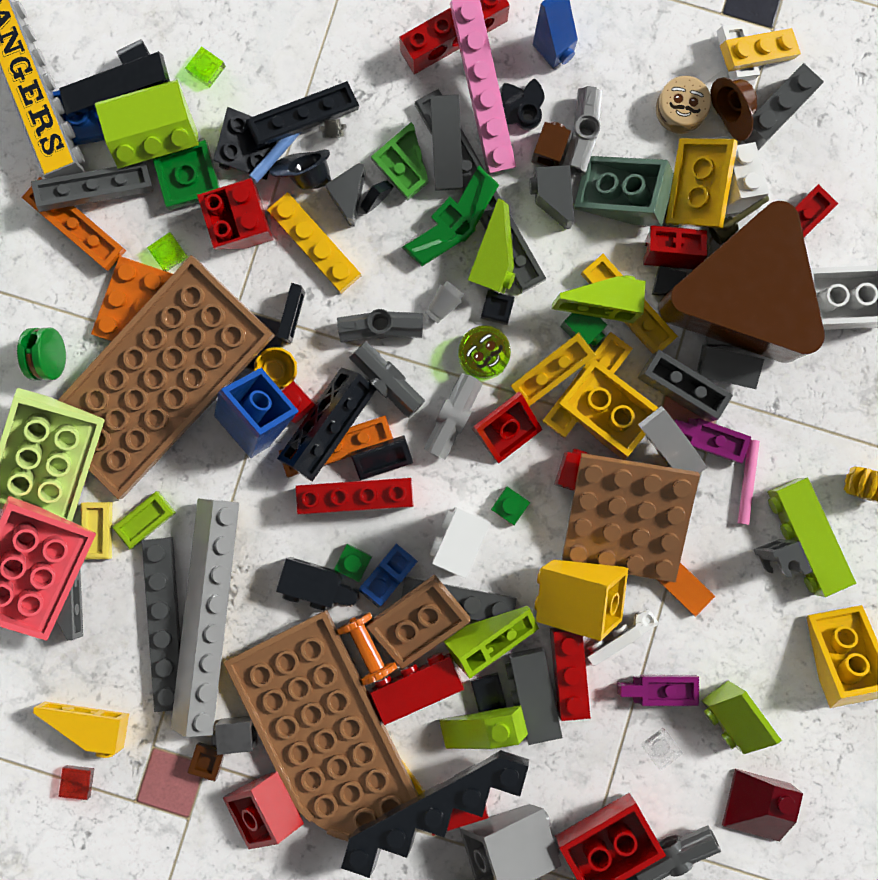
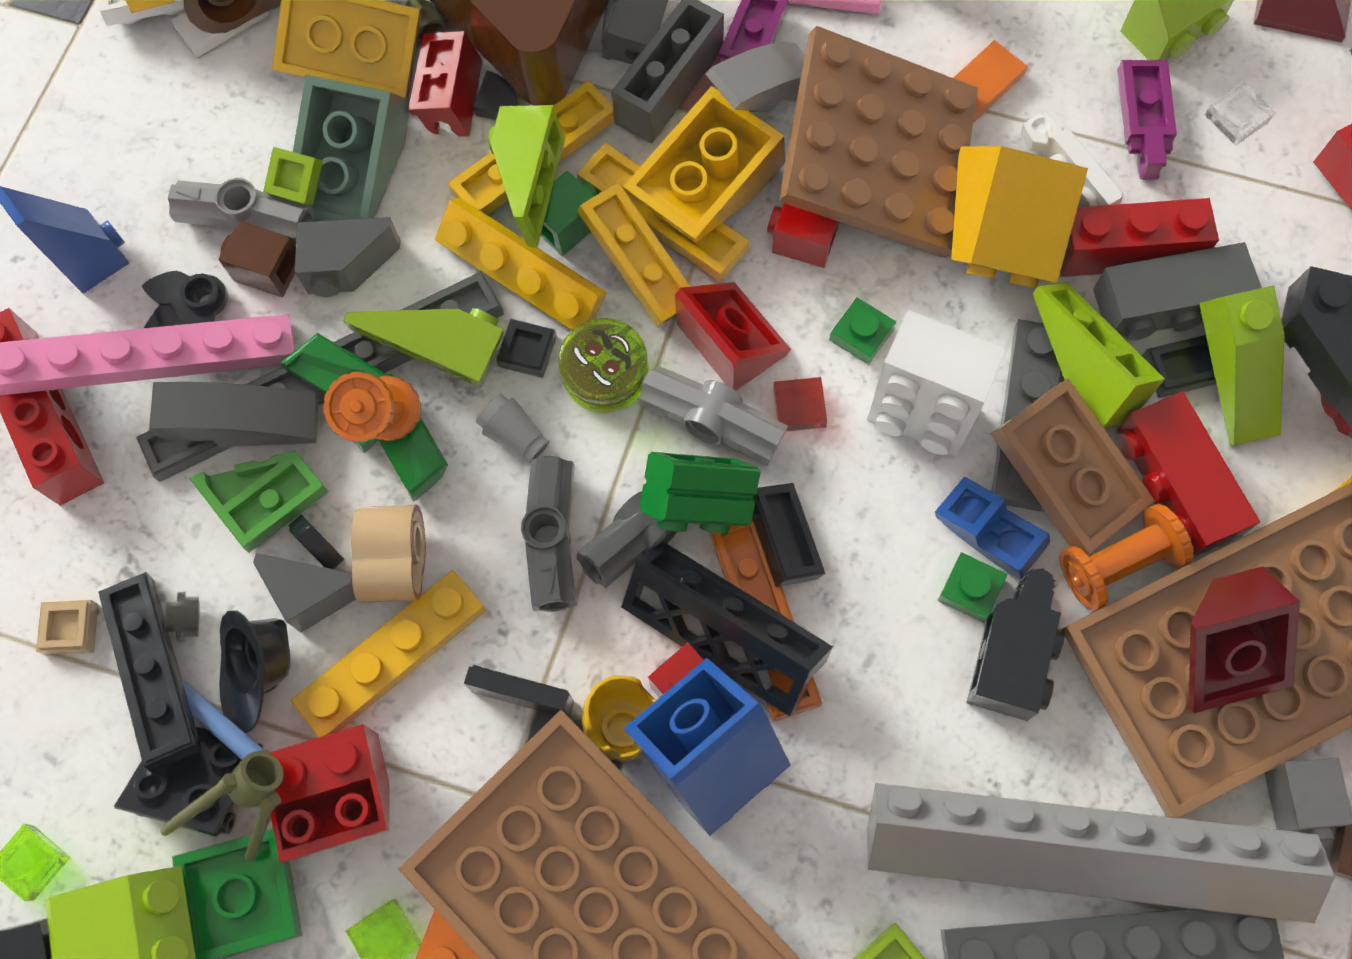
camera: 85 degrees left, 15 degrees down
(230, 175) = (248, 785): none -> olive plant
(313, 703) = (1242, 640): none -> dark red slope
(329, 67) = (67, 627): none -> tan tile
(354, 496) = (856, 577): red brick -> none
(366, 236) = (388, 553): none -> tan piece
(398, 407) = (698, 491): none -> green brick
(434, 214) = (371, 407): none -> orange hose
(463, 467) = (800, 403): none -> clear red tile
(539, 312) = (519, 268): none -> yellow plate
(602, 159) = (292, 176): none -> lime plate
(683, 104) = (217, 71): tan head -> none

